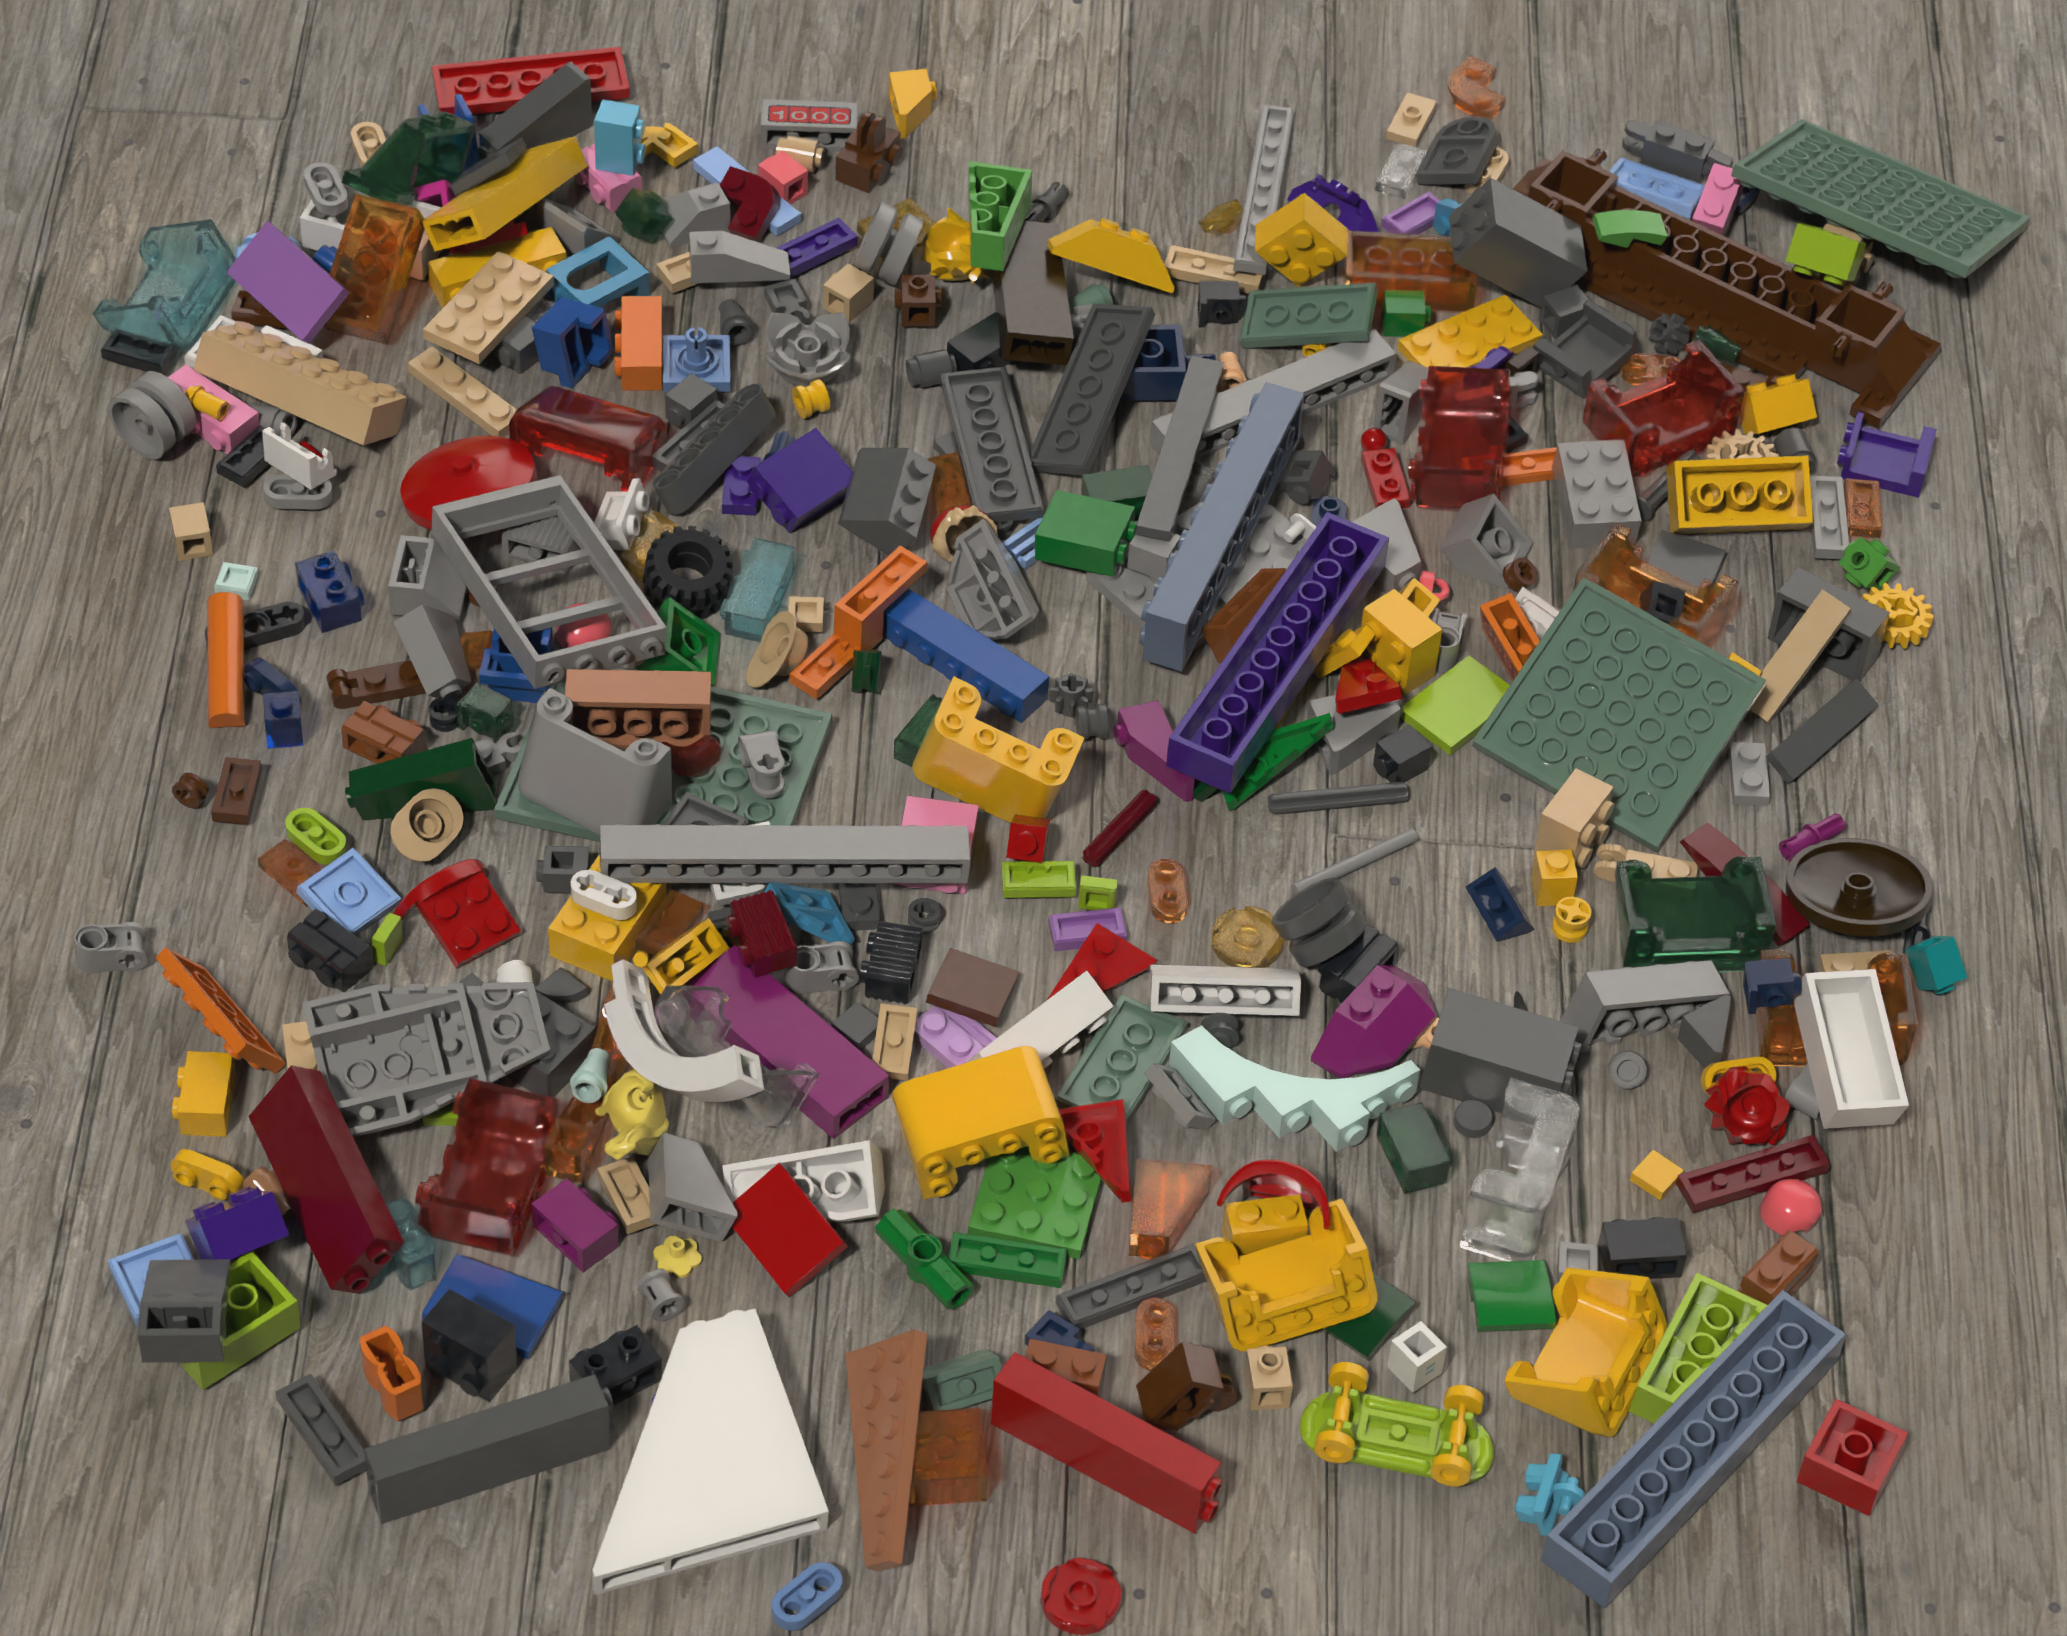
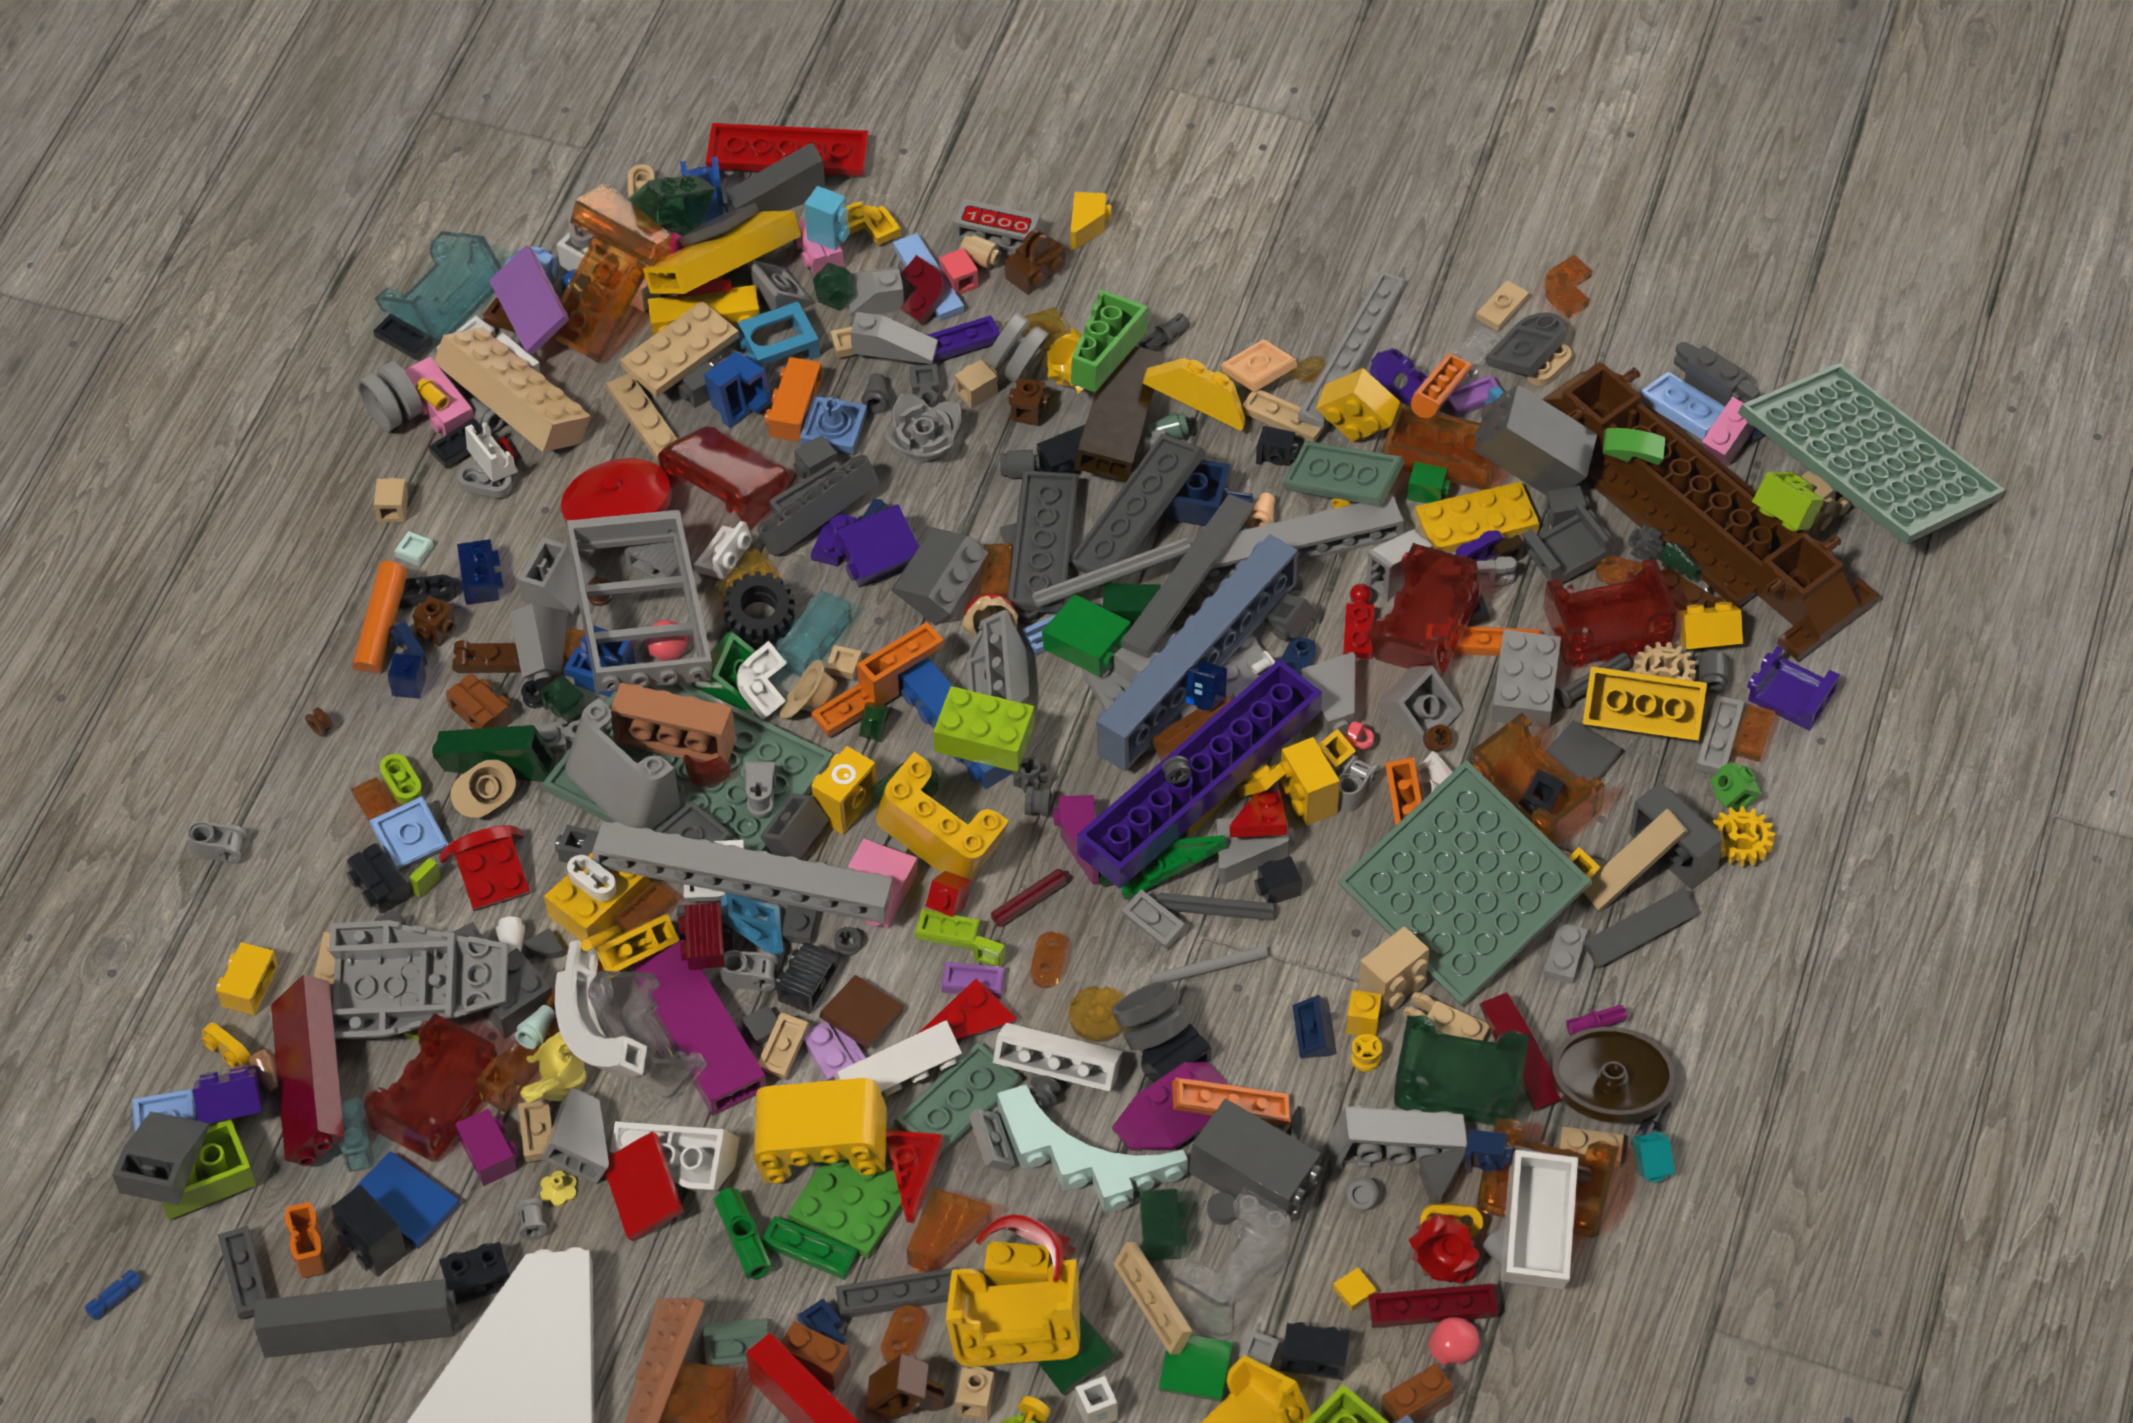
camera: 20 degrees right, 5 degrees up
(163, 1490) = (113, 1294): none -> blue axle
(220, 1011) = (276, 913): orange plate -> none
(236, 790) = (353, 728): reddish brown plate -> none
(295, 652) = (434, 620): none -> reddish brown brick
(385, 175) = (621, 224): none -> clear orange slope
(709, 648) = (754, 682): none -> white plate
(811, 398) = (913, 473): yellow wheel -> none
(820, 794) = (794, 826): none -> dark grey brick
(863, 747) = (845, 788): none -> yellow brick
(1010, 648) = (984, 728): none -> lime brick
(1089, 461) = (1110, 573): none -> light grey axle
(1169, 220) = (1259, 365): none -> light nougat tile
(1251, 556) = (1206, 685): none -> clear blue brick
(1260, 645) = (1176, 769): none -> dark grey bush
(1274, 823) = (1154, 919): none -> light grey plate
(1384, 207) = (1439, 386): none -> orange brick
(1427, 996) = (1207, 1096): none -> orange tile
(1437, 1228) = (1153, 1298): none -> tan plate
(1455, 704) = (1341, 842): lime tile -> none

